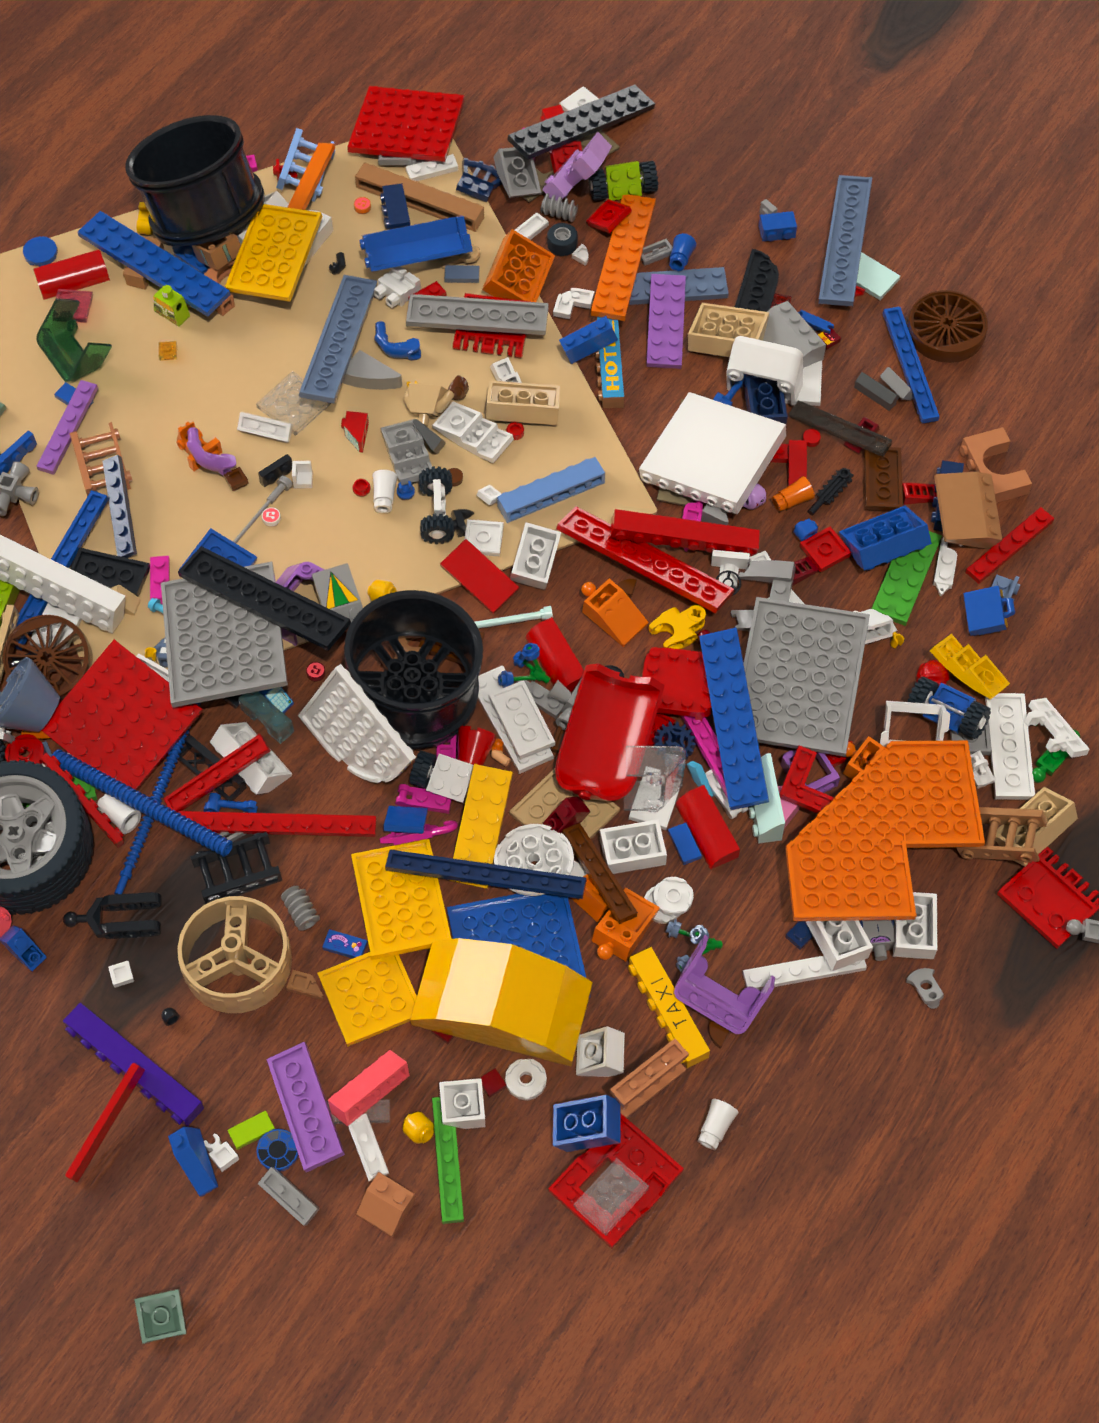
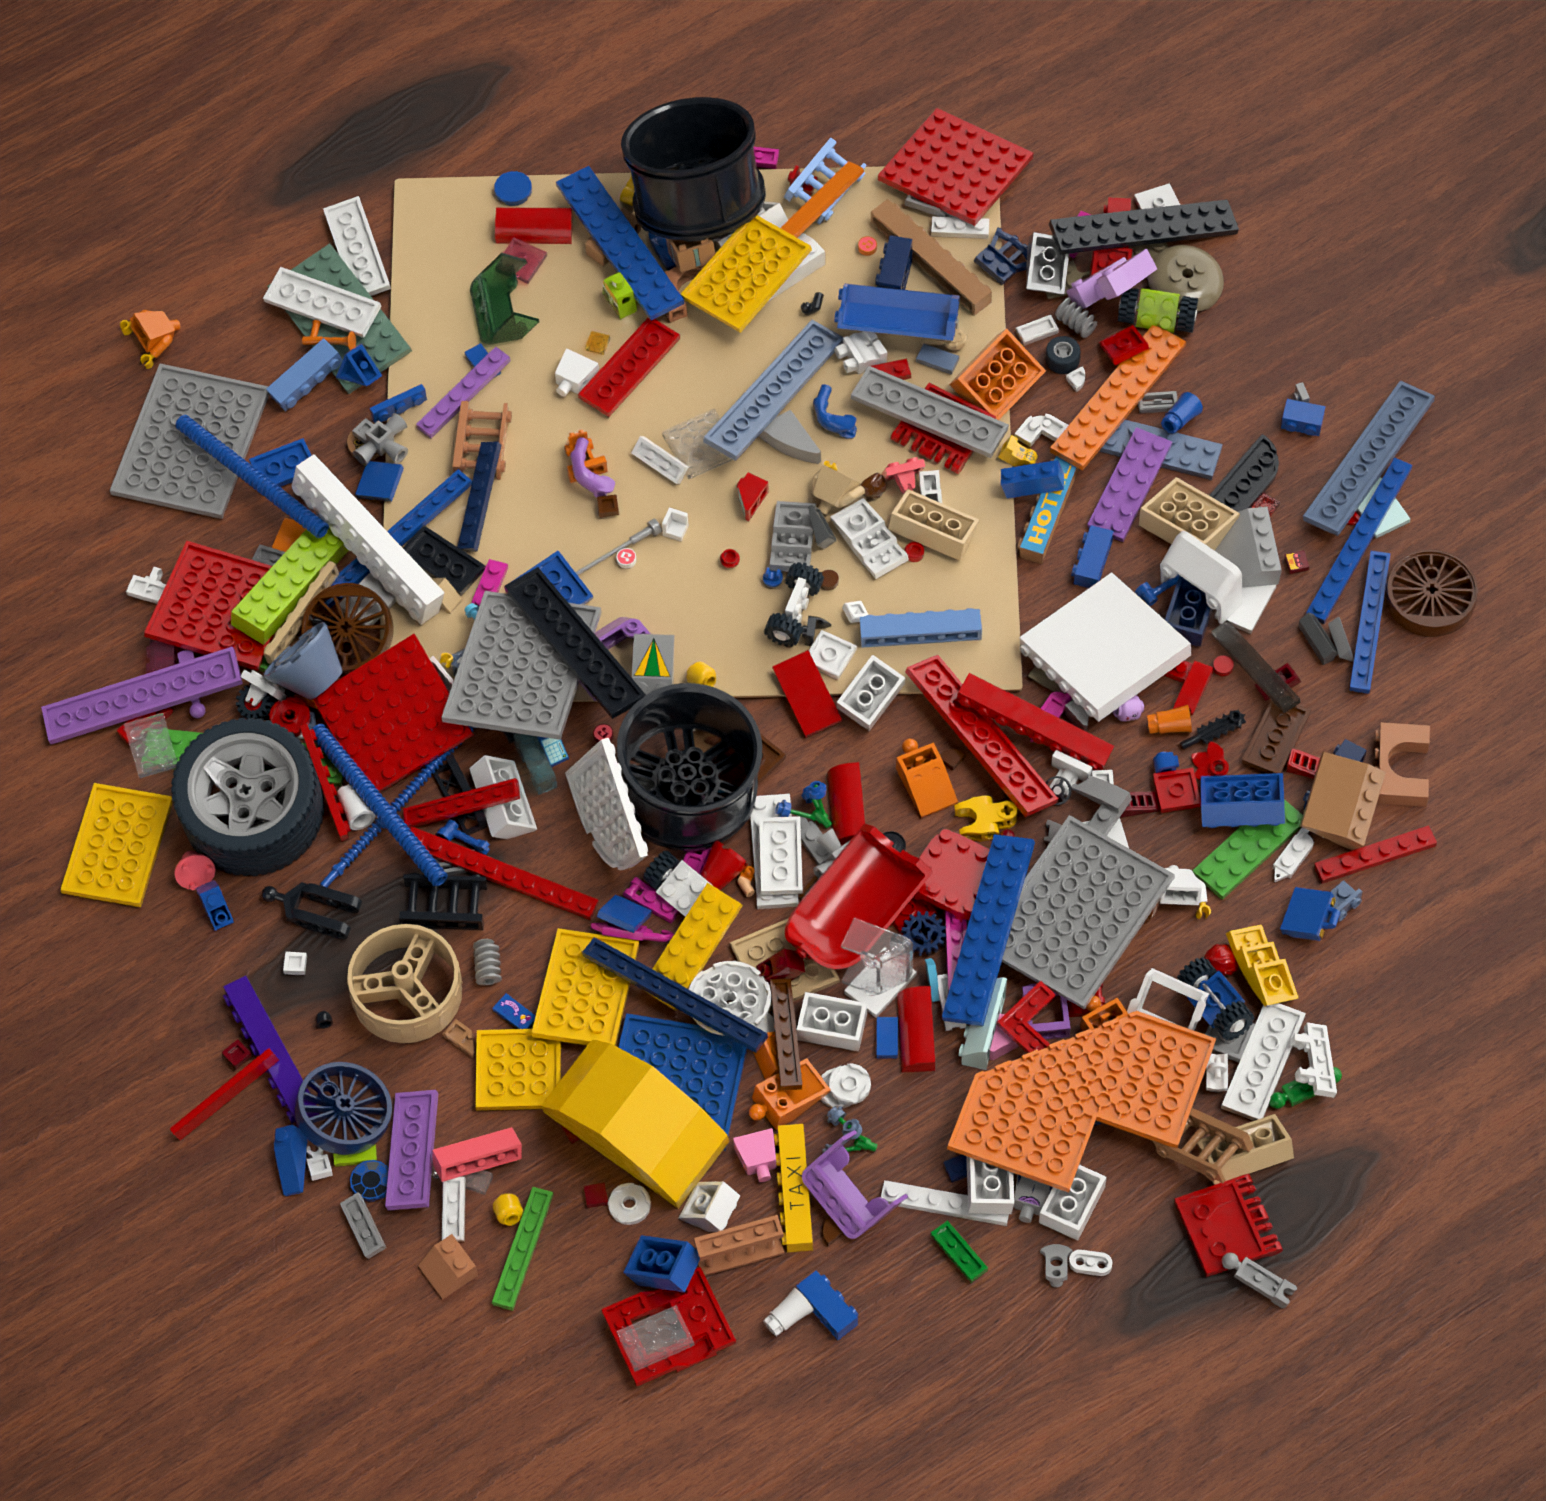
camera: 25 degrees right, 0 degrees up
(23, 523) = (379, 481): none -> blue tile
(100, 1079) = (236, 1054): none -> dark red plate
(159, 380) = (574, 372): none -> white torso
(160, 1315) = (204, 1286): sand green slope -> none
(203, 360) = (629, 366): none -> red plate
(215, 1094) = (343, 1108): none -> dark blue piece
(275, 470) = (650, 510): black plate -> none
(384, 488) = (750, 569): white plant -> none
(462, 1103) = (557, 1202): white slope -> none
(480, 370) = (904, 473): none -> coral plate
(543, 614) = (855, 755): light aqua piece -> none
(562, 326) = (1016, 454): none -> yellow leg
(621, 989) = (757, 1153): none -> bright pink torso
(633, 145) = (1203, 271): none -> dark tan brick
(664, 387) = (1092, 556): none -> blue brick
(749, 1102) = (828, 1305): none -> blue brick
(816, 322) = (1289, 539): blue piece -> none
(838, 517) = (1208, 761): none -> red plate
(838, 1008) = (959, 1251): none -> green plate
(870, 304) = (1359, 539): none -> blue plate
(954, 975) = (1090, 1260): none -> white plate

